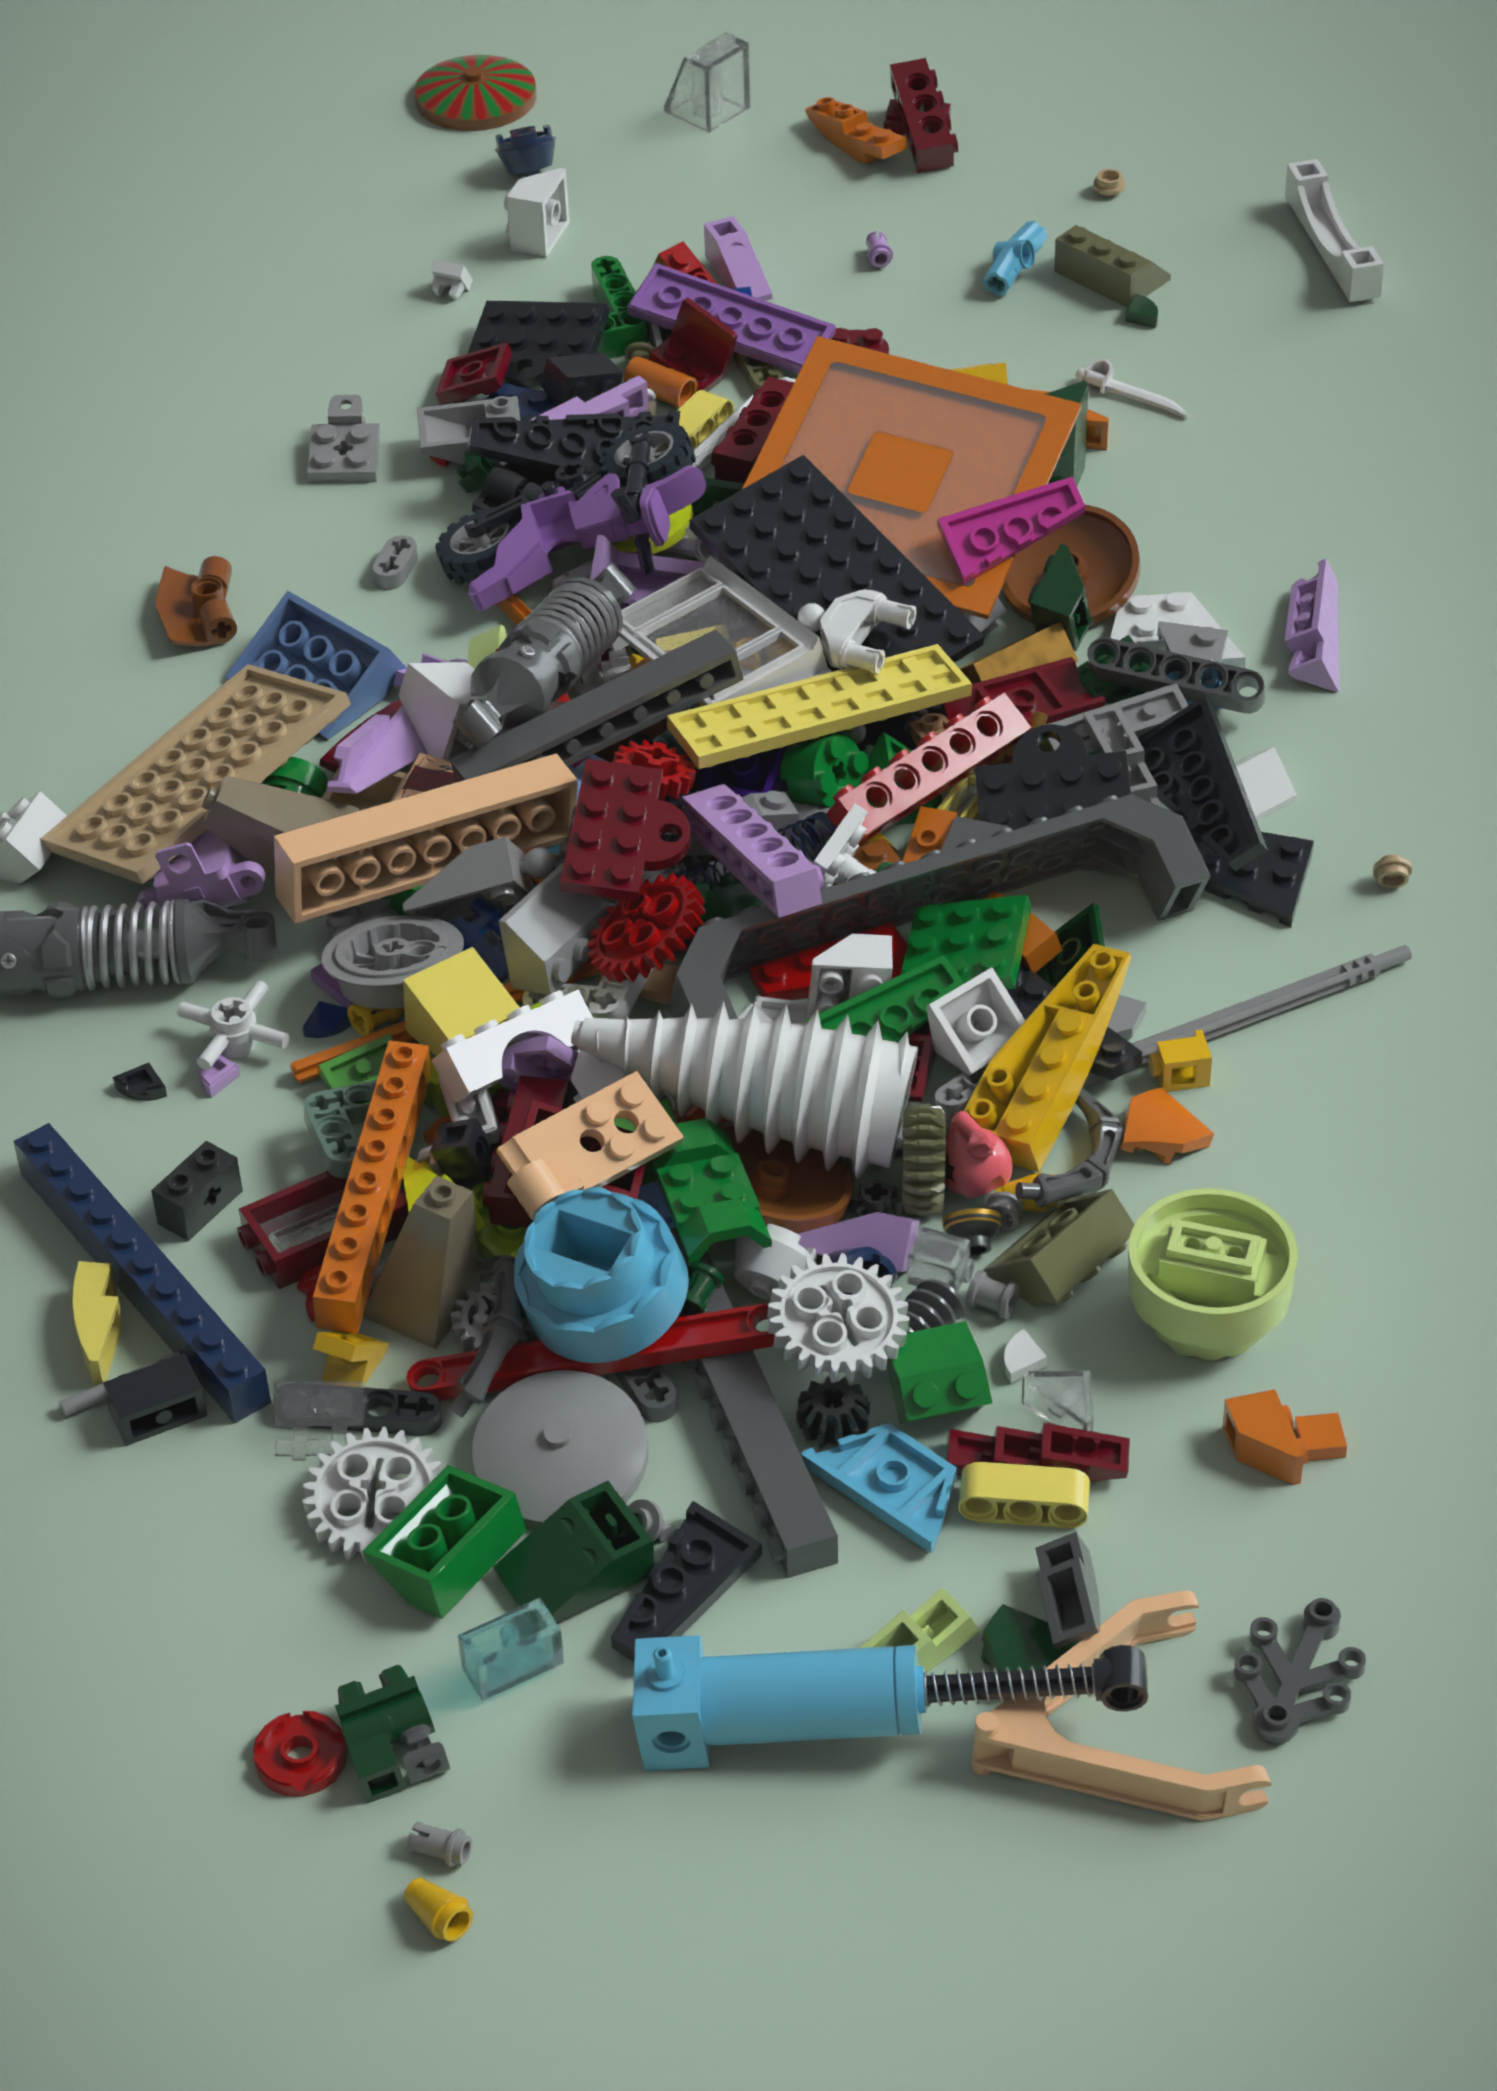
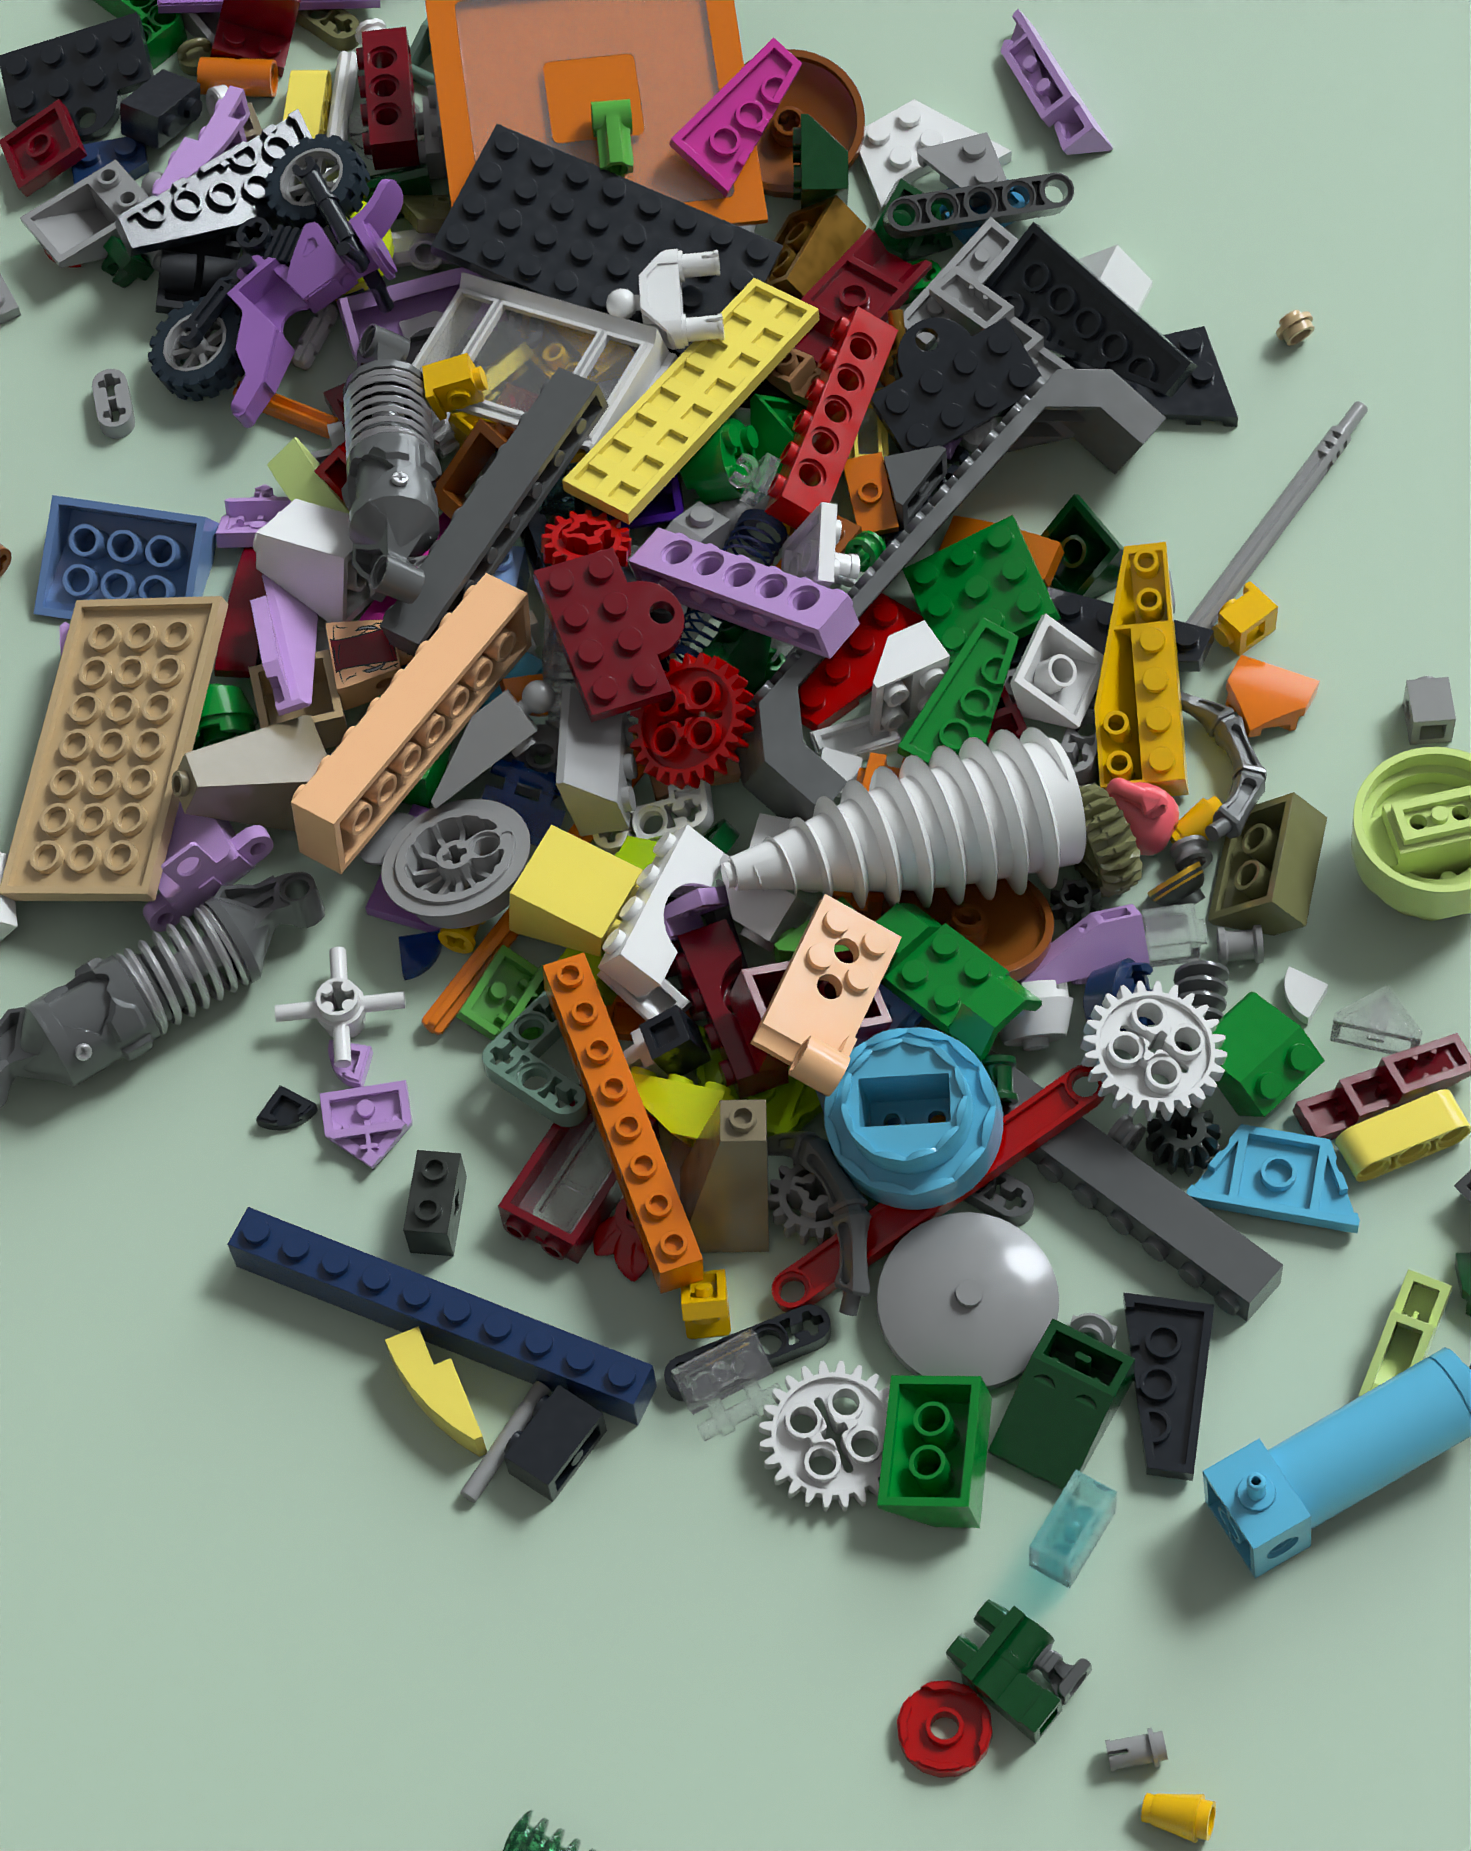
camera: 25 degrees left, 15 degrees up
(198, 1115) = (367, 1119): none -> lavender slope
(637, 623) = (453, 384): none -> yellow brick
(786, 1388) = (1127, 1133): none -> light grey bush
(831, 786) = (758, 479): none -> clear tile
(896, 495) = (613, 129): none -> bright green piece
(1293, 1190) = (1429, 710): none -> light grey brick

